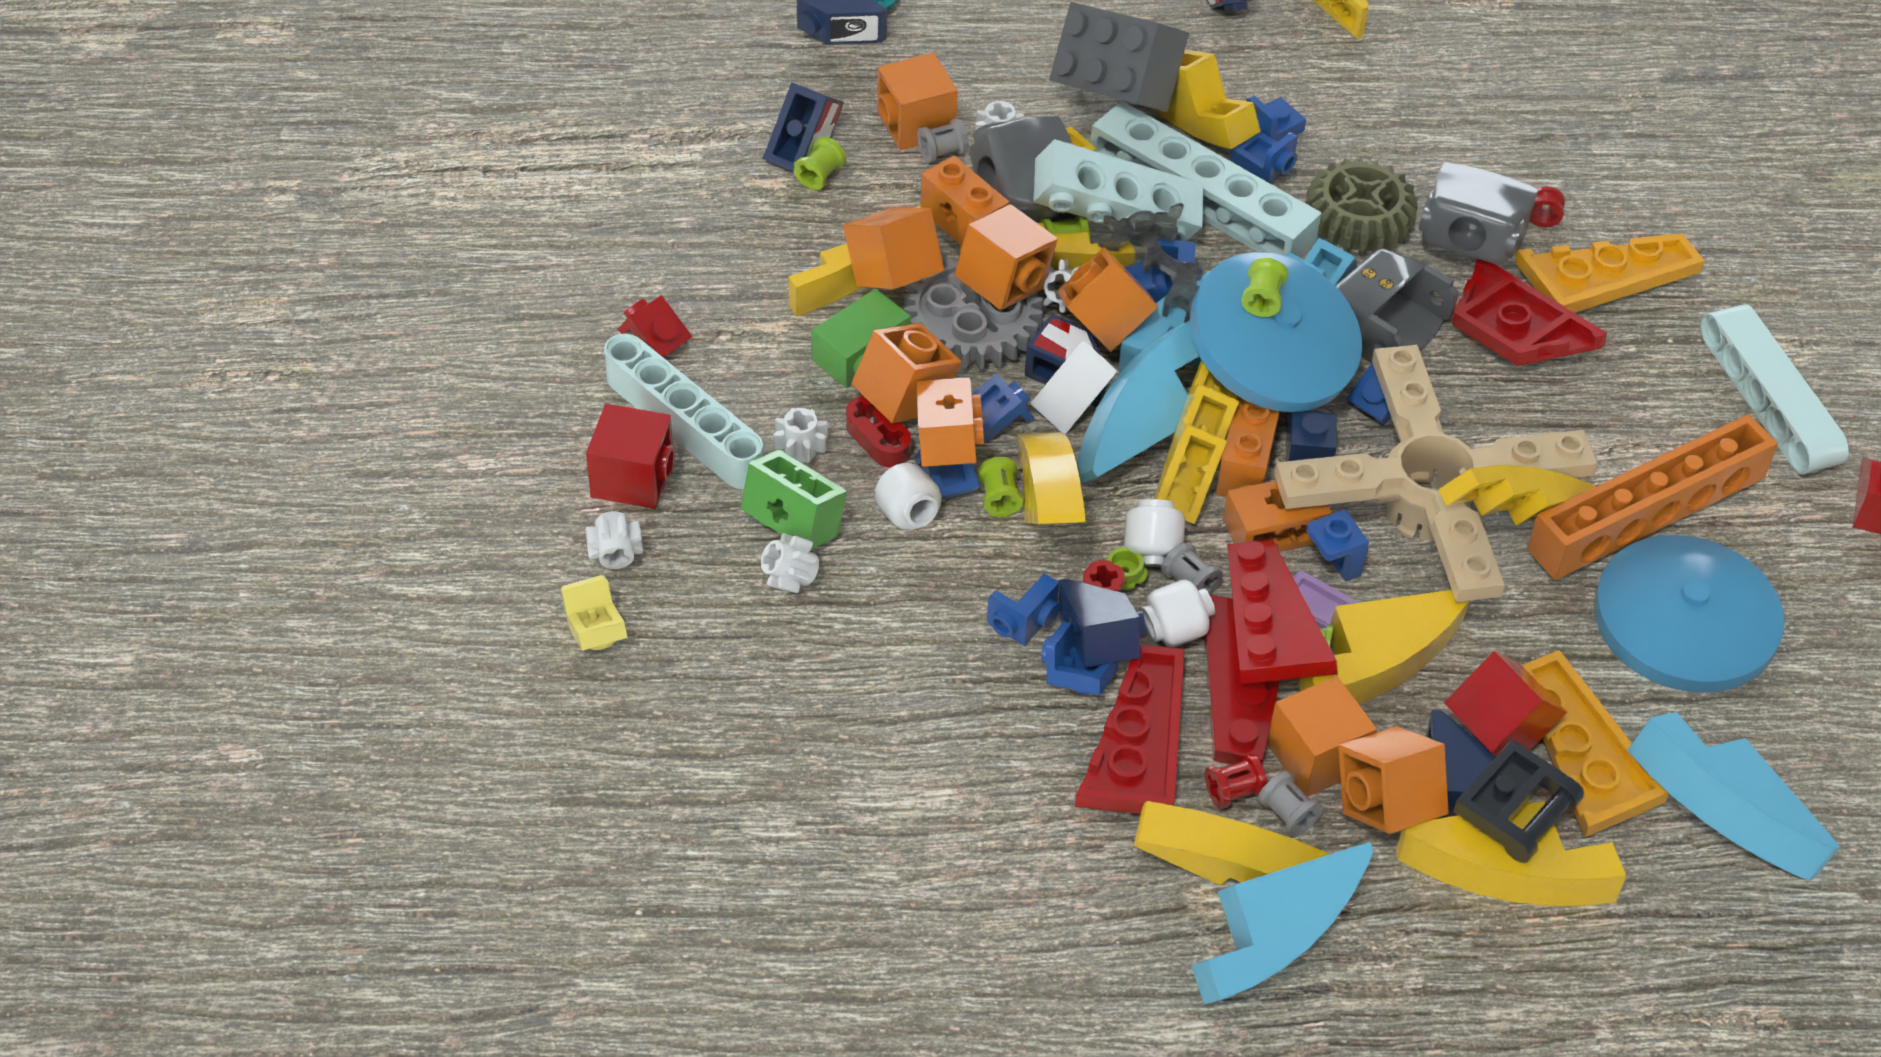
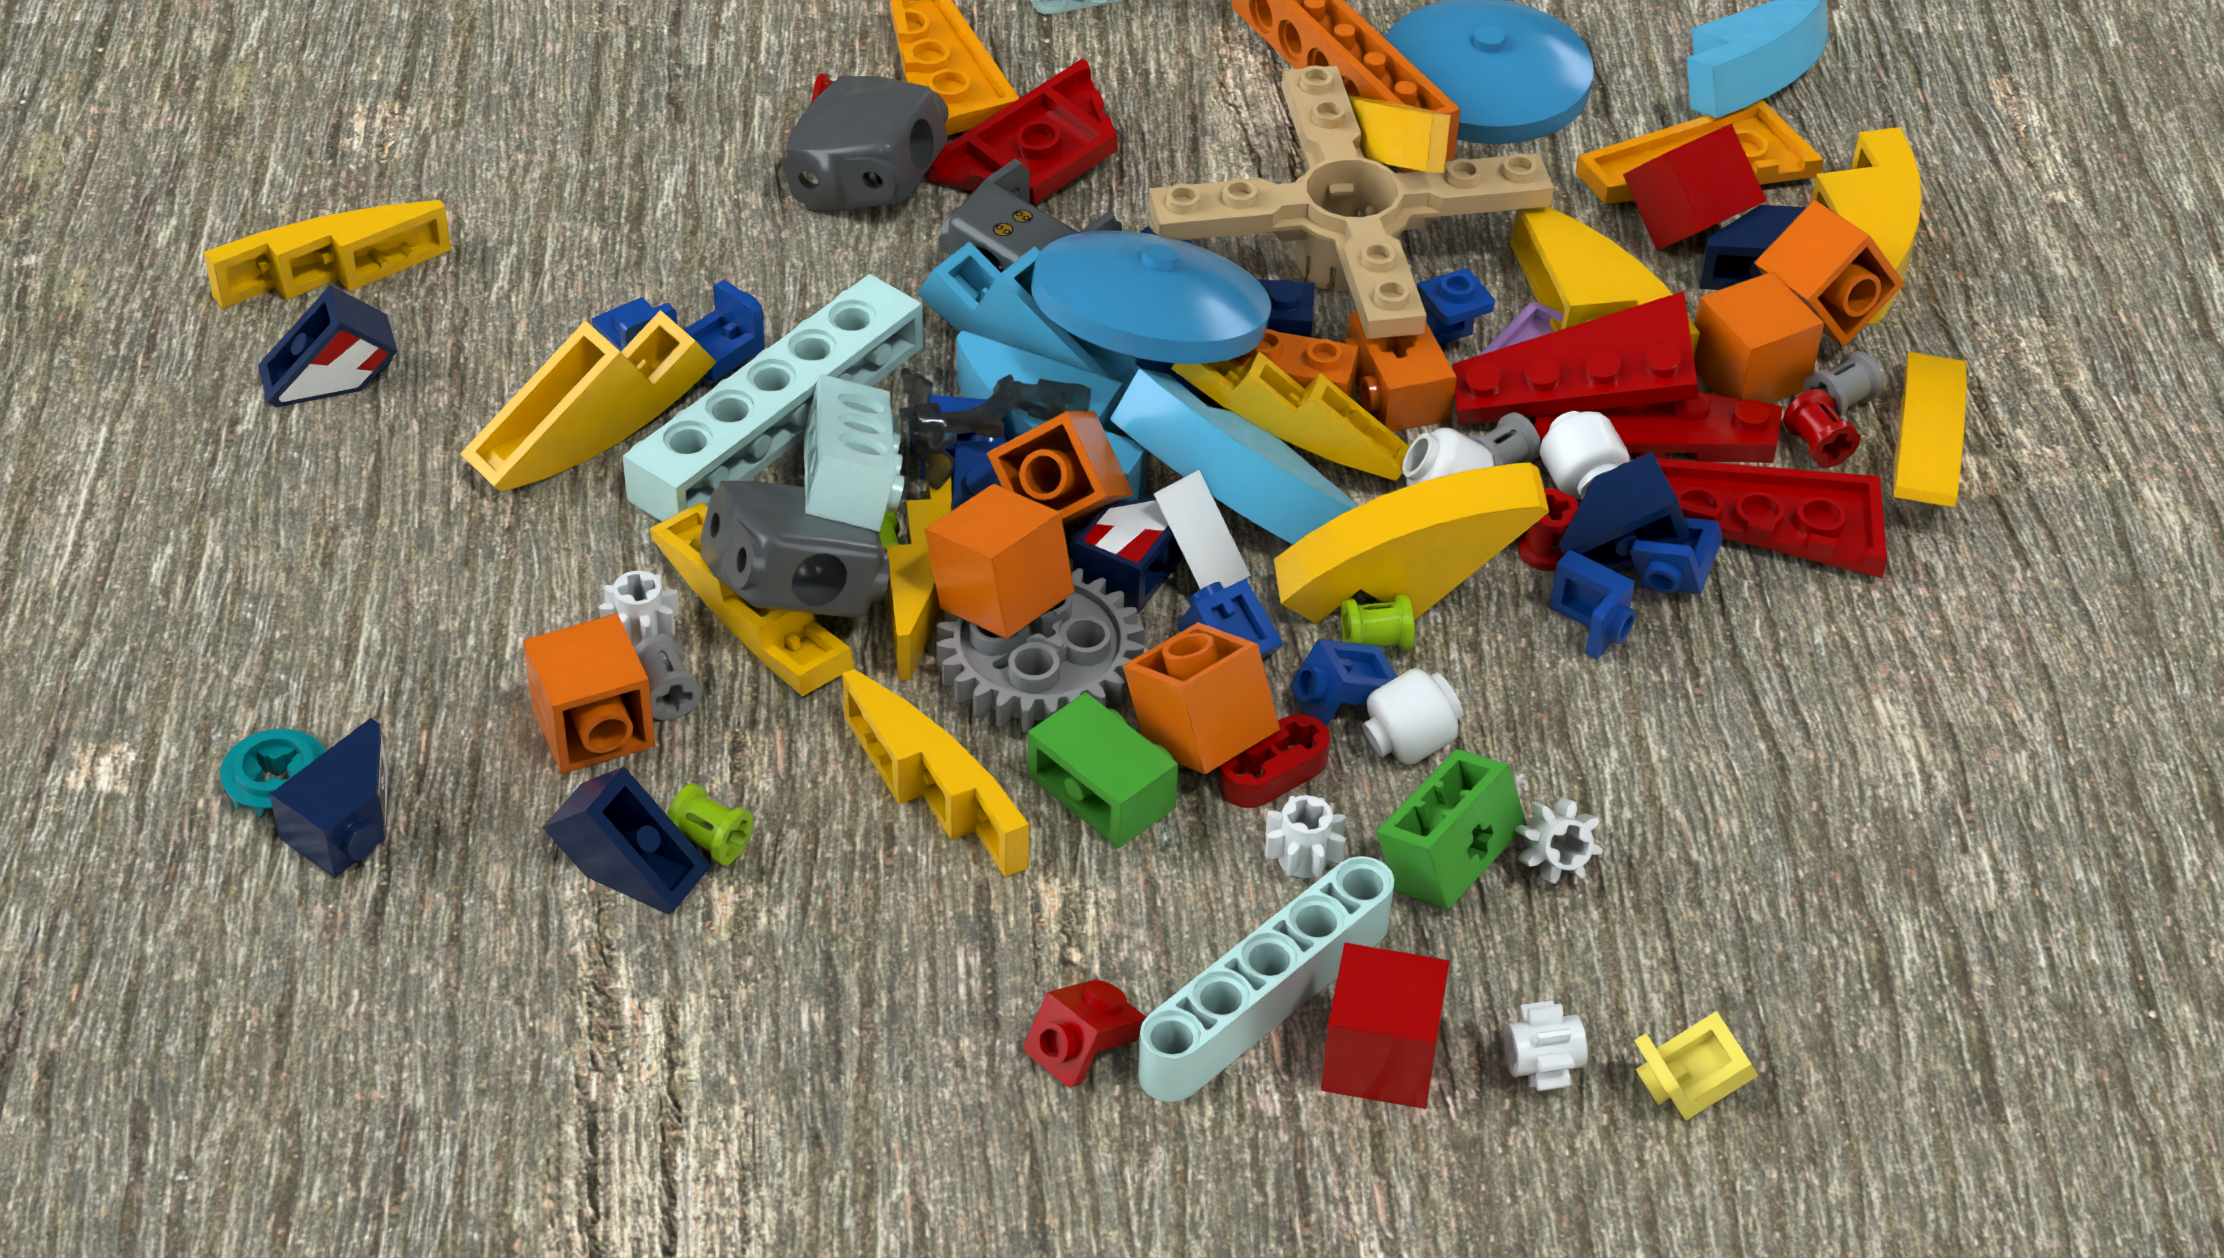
camera: 90 degrees left, 5 degrees down
(893, 247) = (972, 689): orange head -> none
(948, 422) = (1324, 634): orange brick -> none
(957, 197) = (888, 604): orange brick -> none
(1119, 56) = (561, 430): dark grey brick -> none
(1263, 294) = (1140, 254): lime bush -> none
(1279, 919) = (2030, 388): medium azure slope -> none
(1370, 209) = (822, 248): olive gear -> none
(1506, 788) = (1837, 179): black plate -> none

